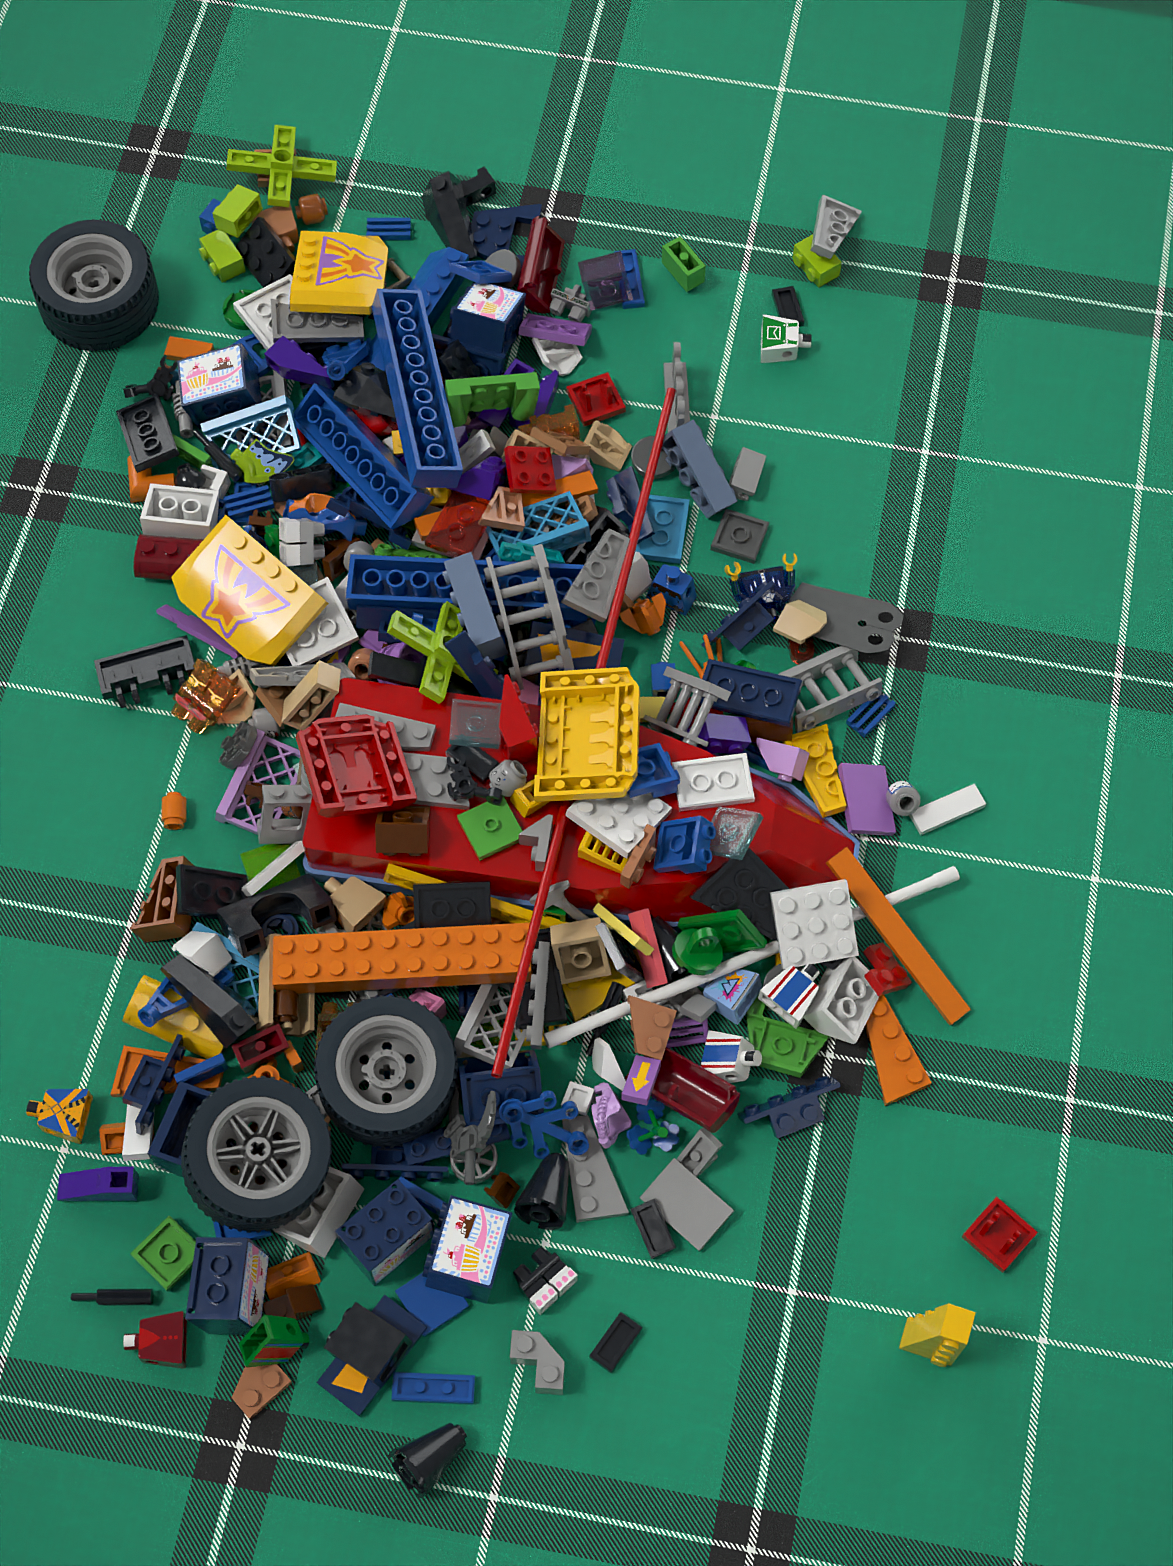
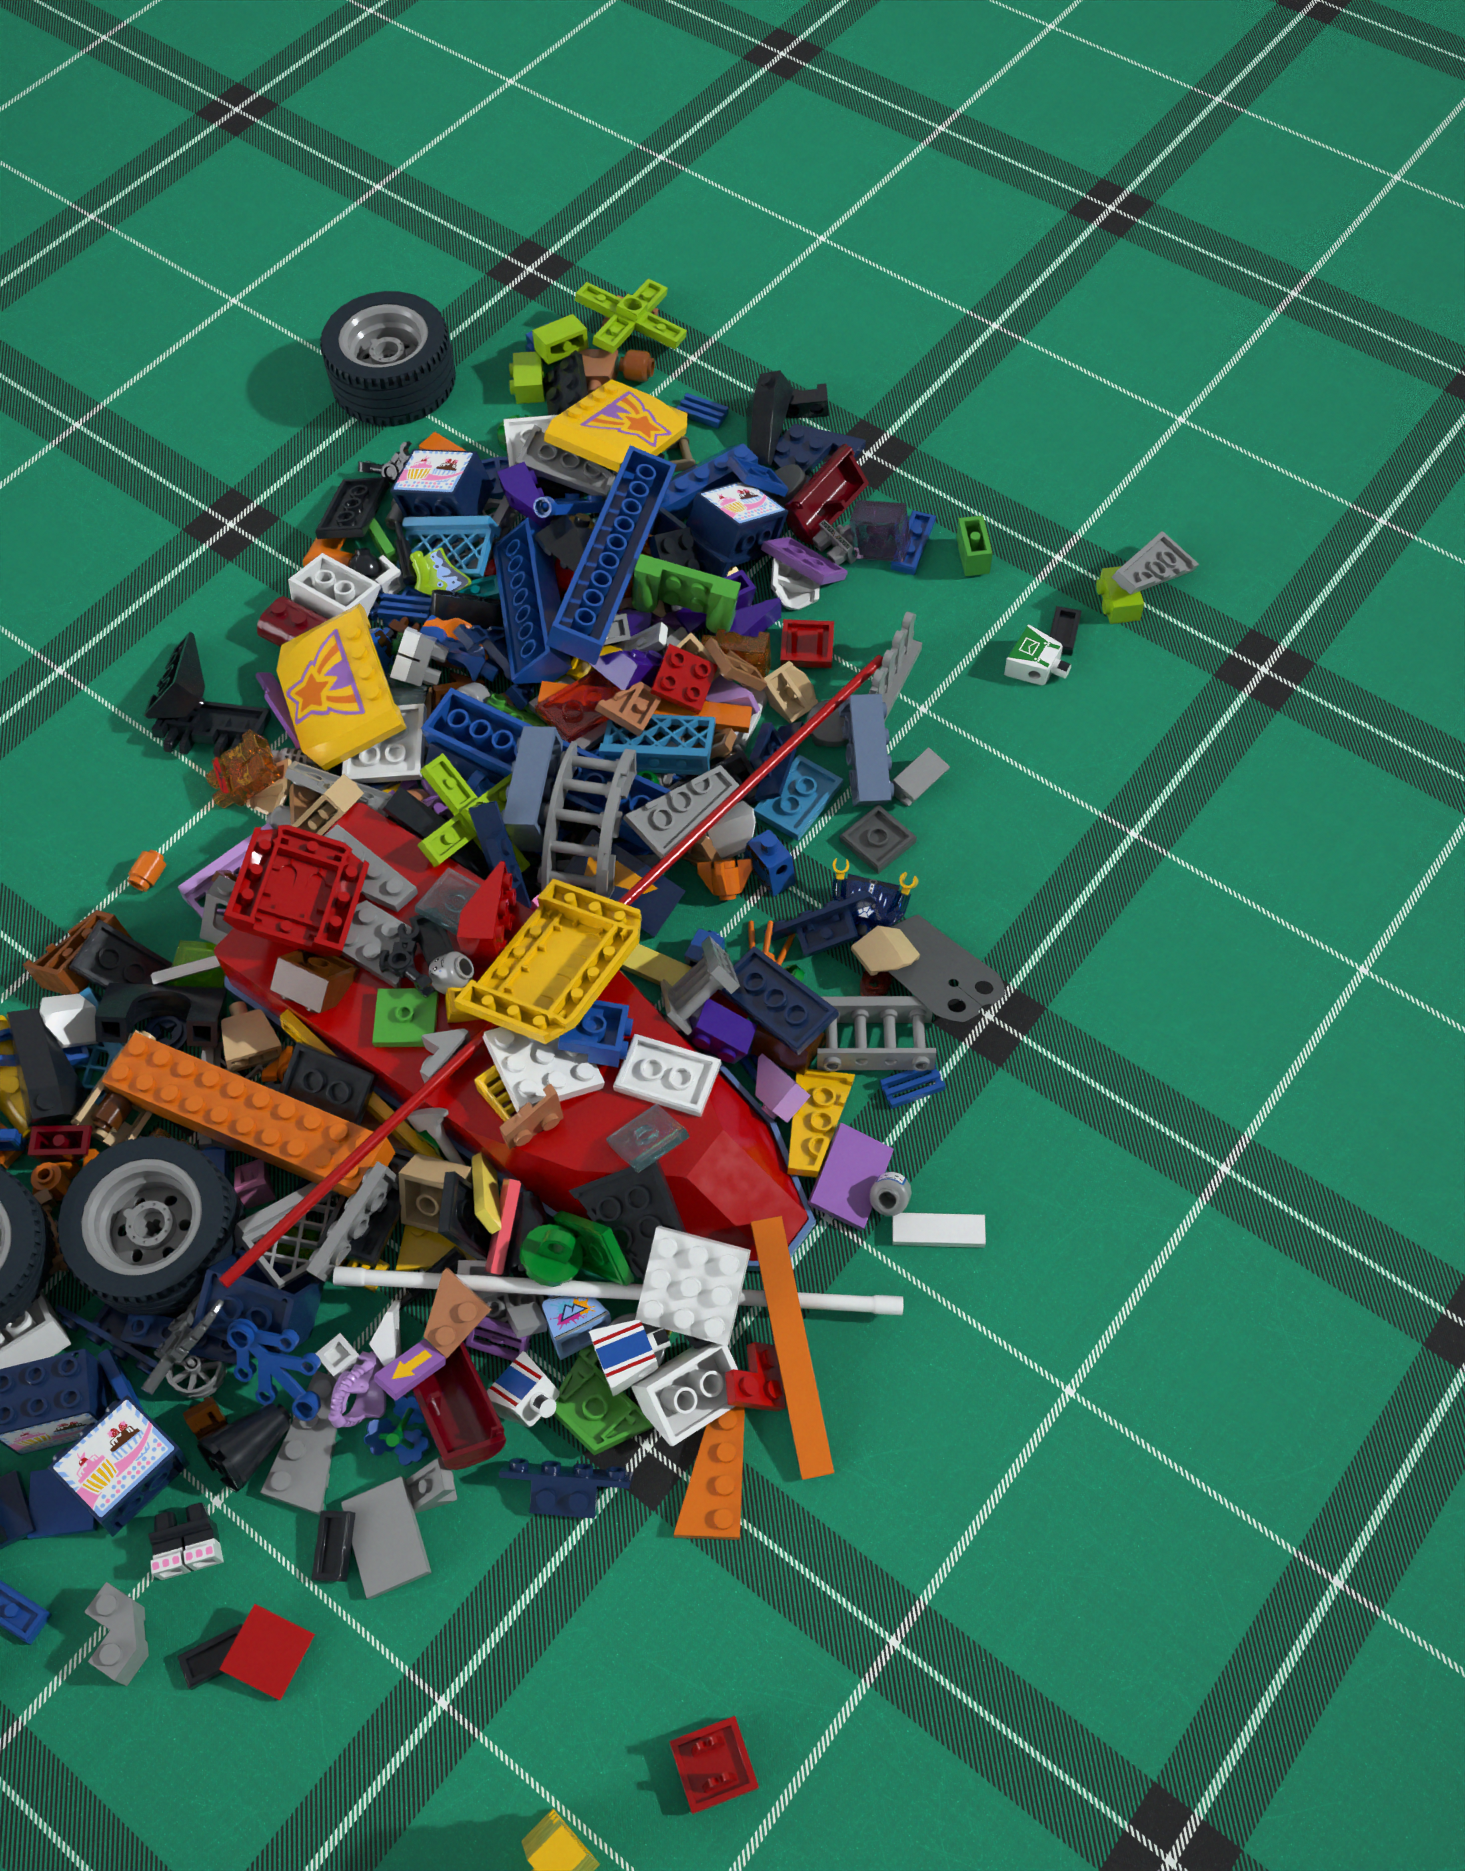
camera: 30 degrees right, 5 degrees down
(99, 646) = (181, 685): none -> black wedge
(238, 746) = (240, 831): dark grey tile -> none
(523, 552) = (609, 749): teal hinge -> none
(652, 1319) = (267, 1652): none -> red tile
(684, 845) = (589, 1128): blue plate -> none

